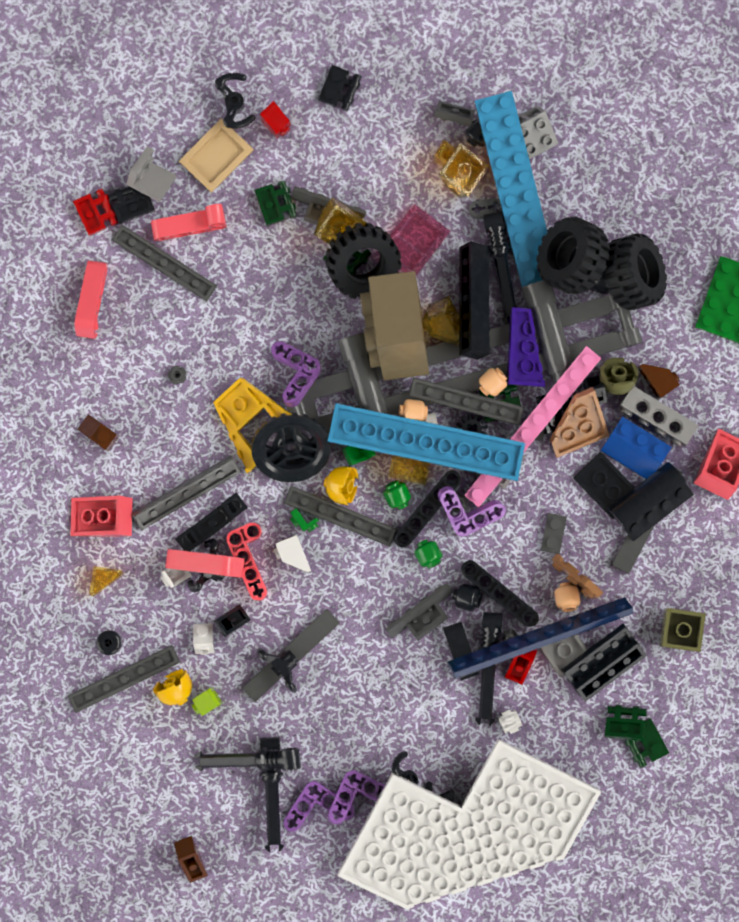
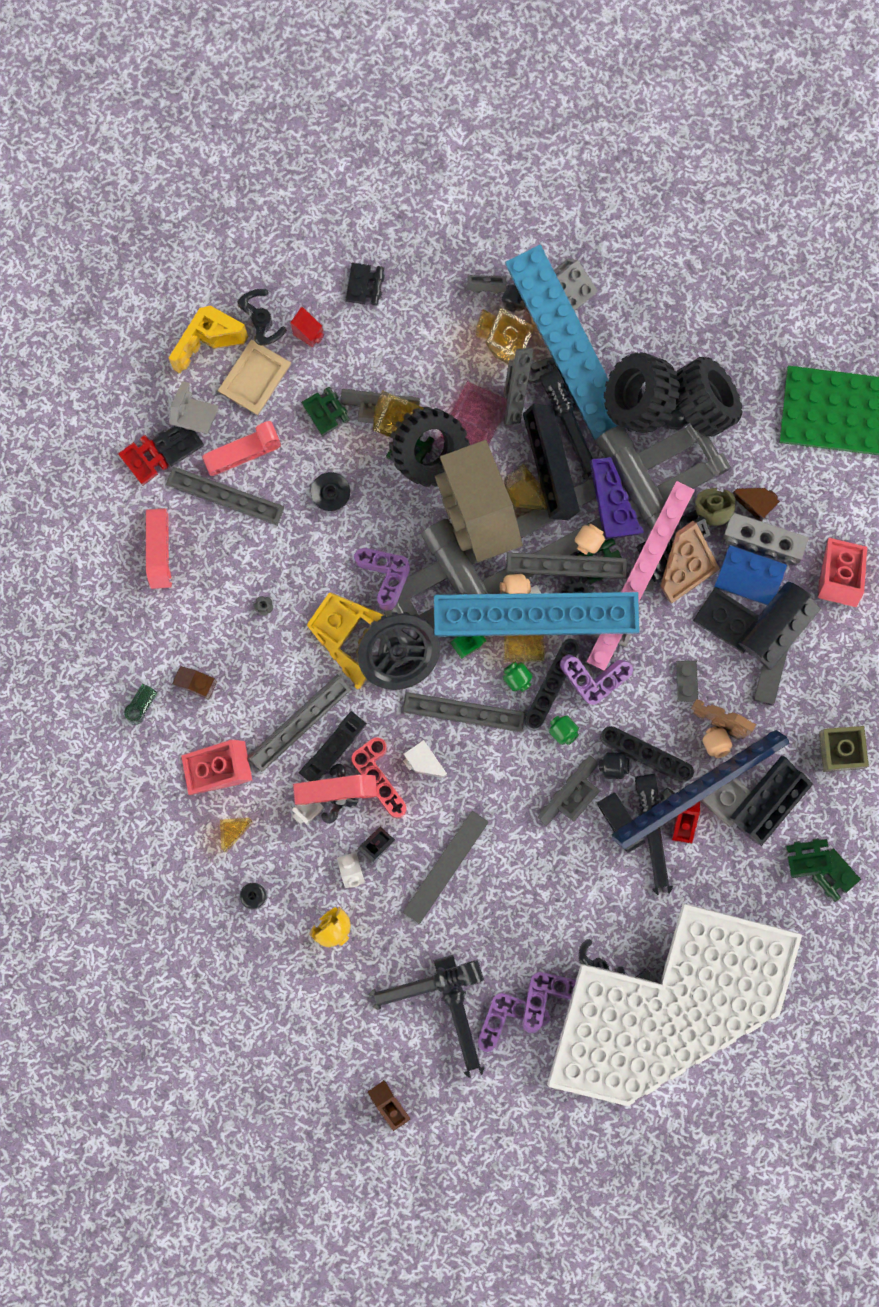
camera: 15 degrees left, 5 degrees down
(45, 440) = (141, 702): none -> clear green piece
(123, 679) = (276, 931): dark grey tile -> none
(194, 106) = (211, 328): none -> yellow bracket
(206, 702) = (368, 935): lime slope -> none
(256, 274) = (325, 483): none -> black dish
(282, 665) = (439, 879): black piece -> none
(298, 520) = (422, 725): green bracket -> none
(340, 484) = (457, 678): yellow cylinder -> none
(459, 220) = (516, 385): none -> dark grey bracket
(510, 721) = (689, 884): white gear -> none

